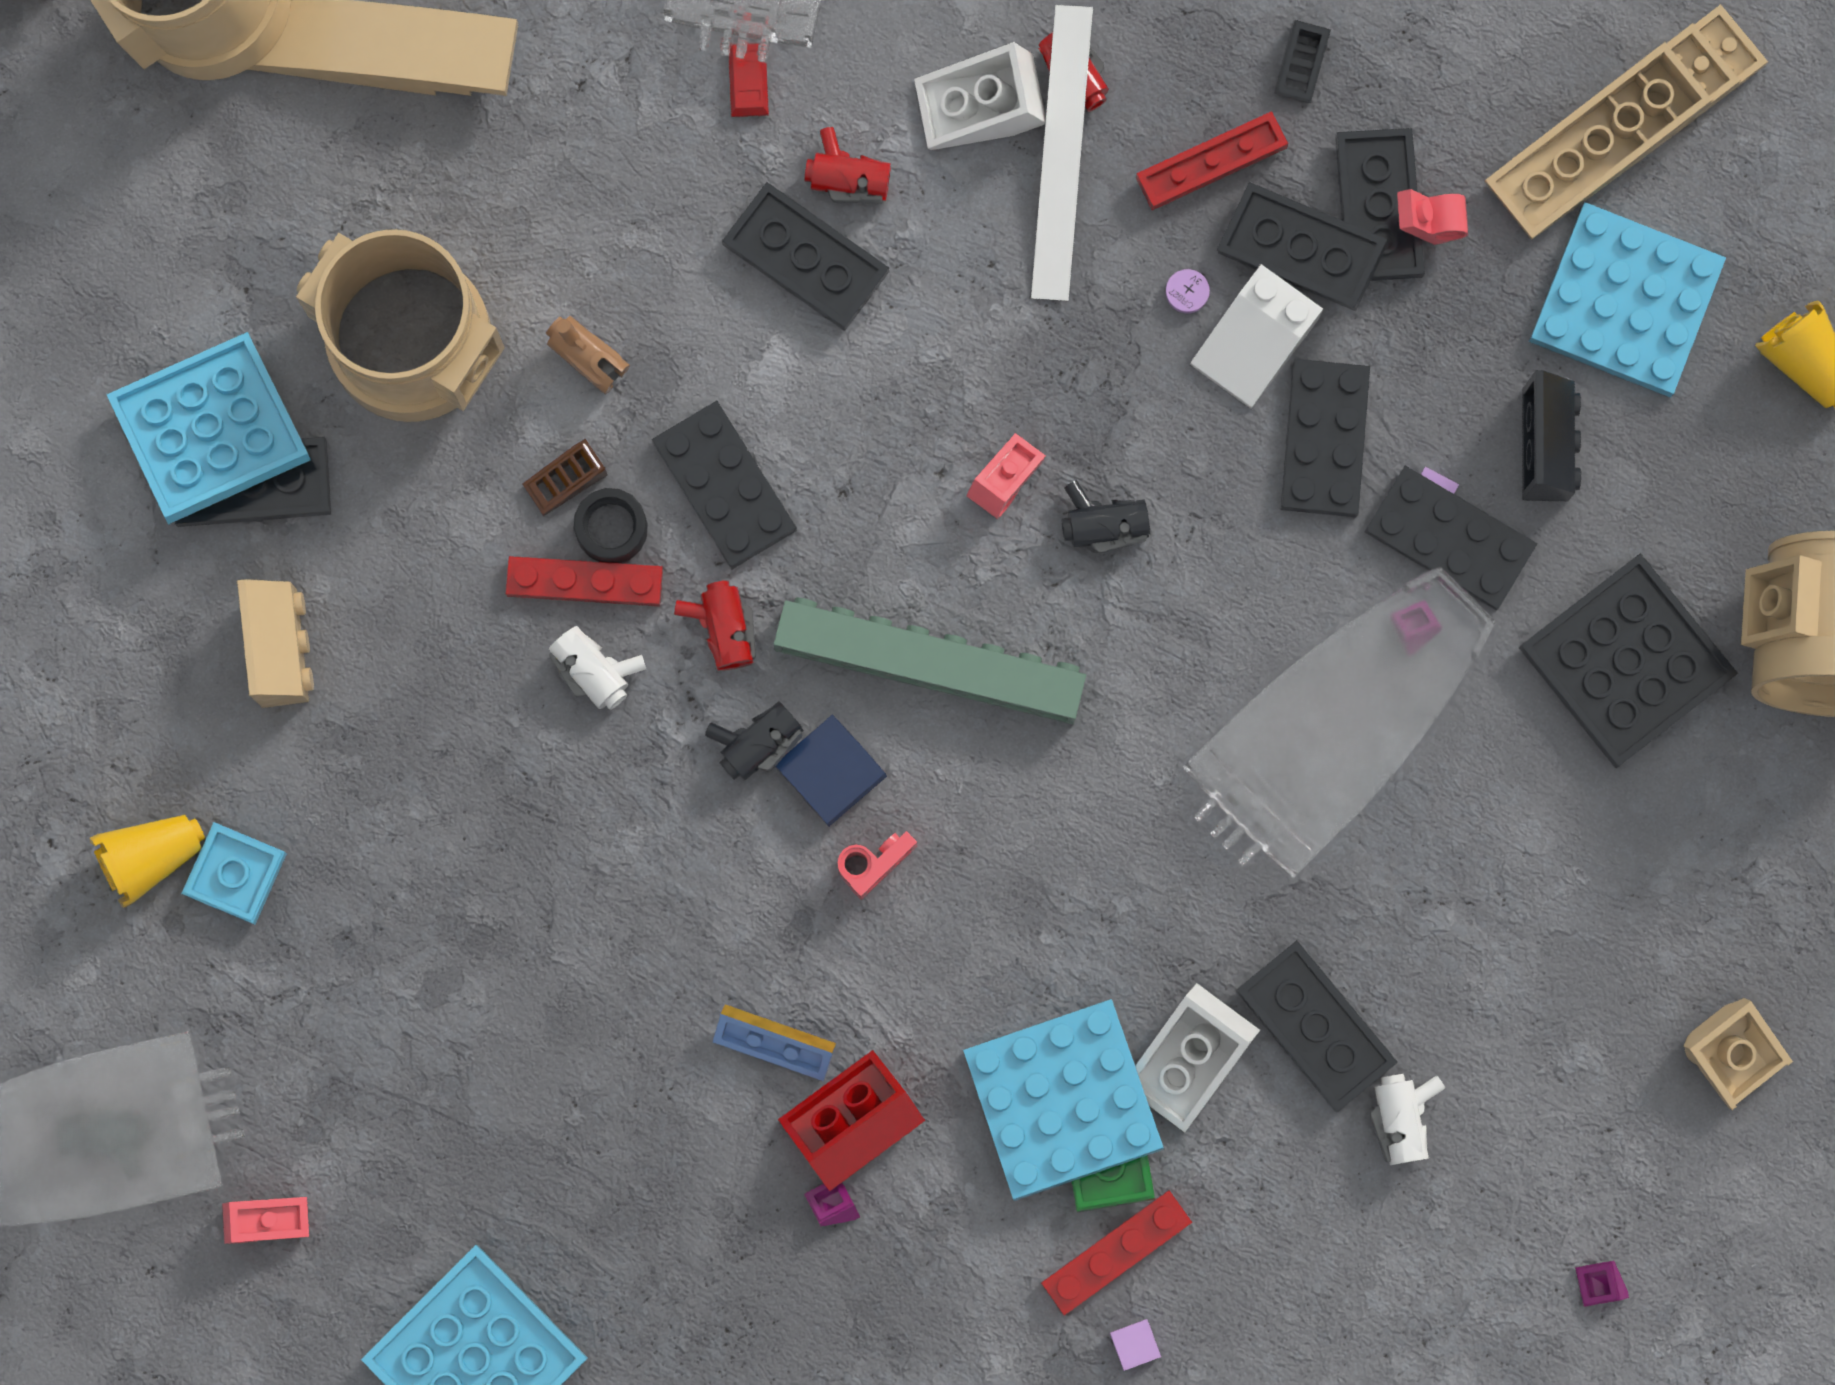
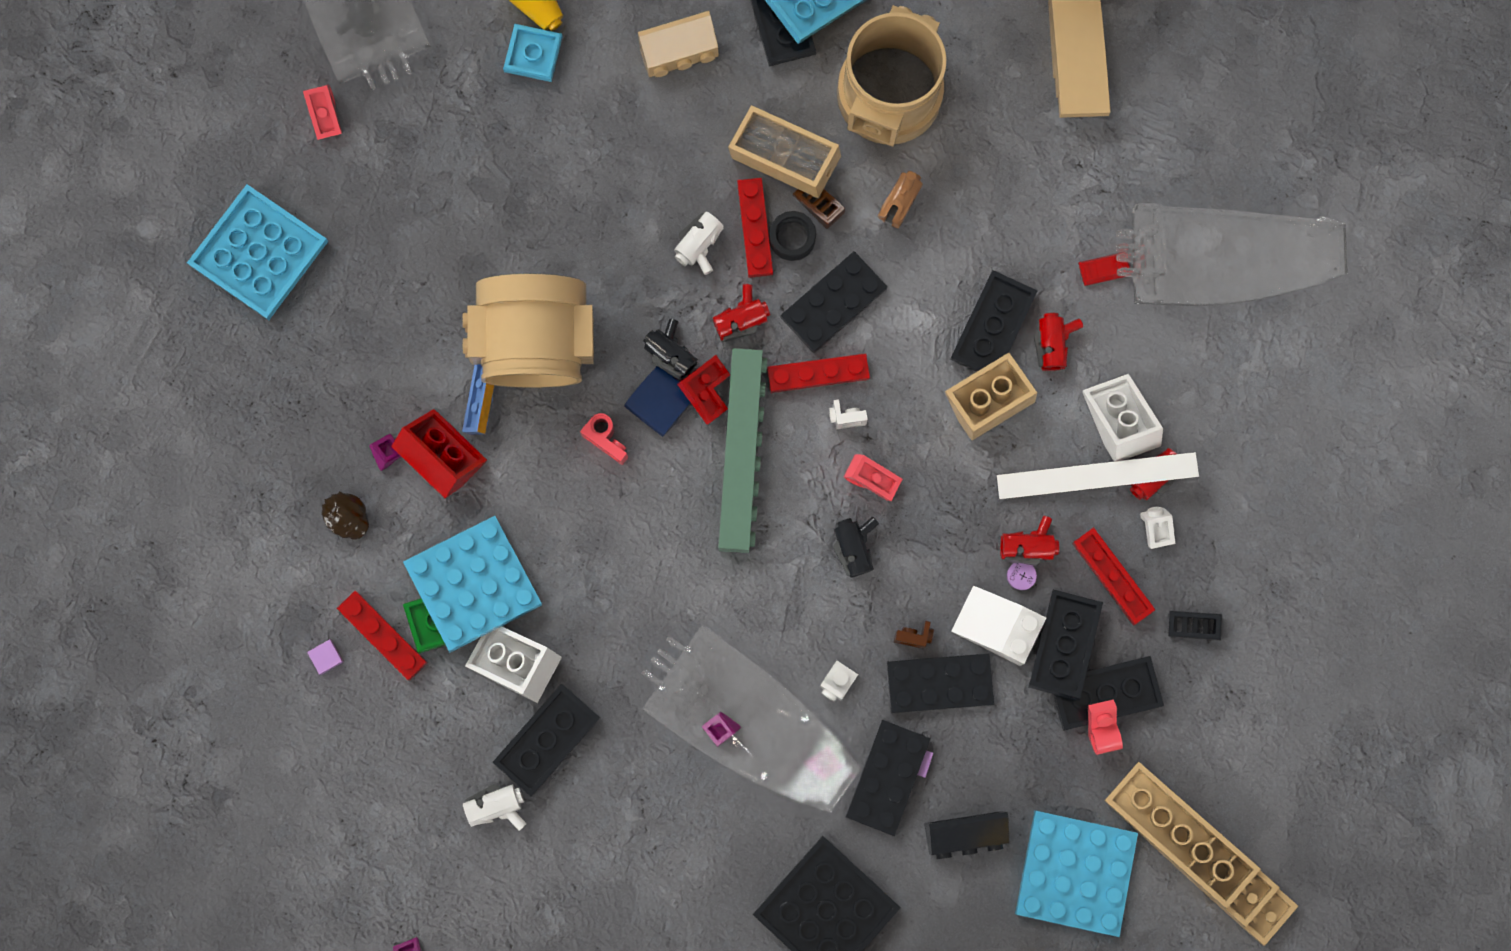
camera: 80 degrees right, 0 degrees up
(478, 511) = (784, 151): none -> brick
(699, 938) = (529, 330): none -> tan cylinder
(826, 705) = (700, 389): none -> red plate
(830, 527) = (818, 373): none -> red plate
(908, 489) = (851, 418): none -> white bracket
(916, 279) = (991, 396): none -> tan slope
(925, 1278) = (345, 515): none -> dark brown hair
(1150, 269) = (1031, 547): none -> red piece
(1151, 82) = (1158, 527): none -> white bracket
(1252, 467) = (910, 637): none -> reddish brown bracket
(1299, 584) = (838, 681): none -> white bracket
(1341, 765) = (720, 728): none -> magenta slope

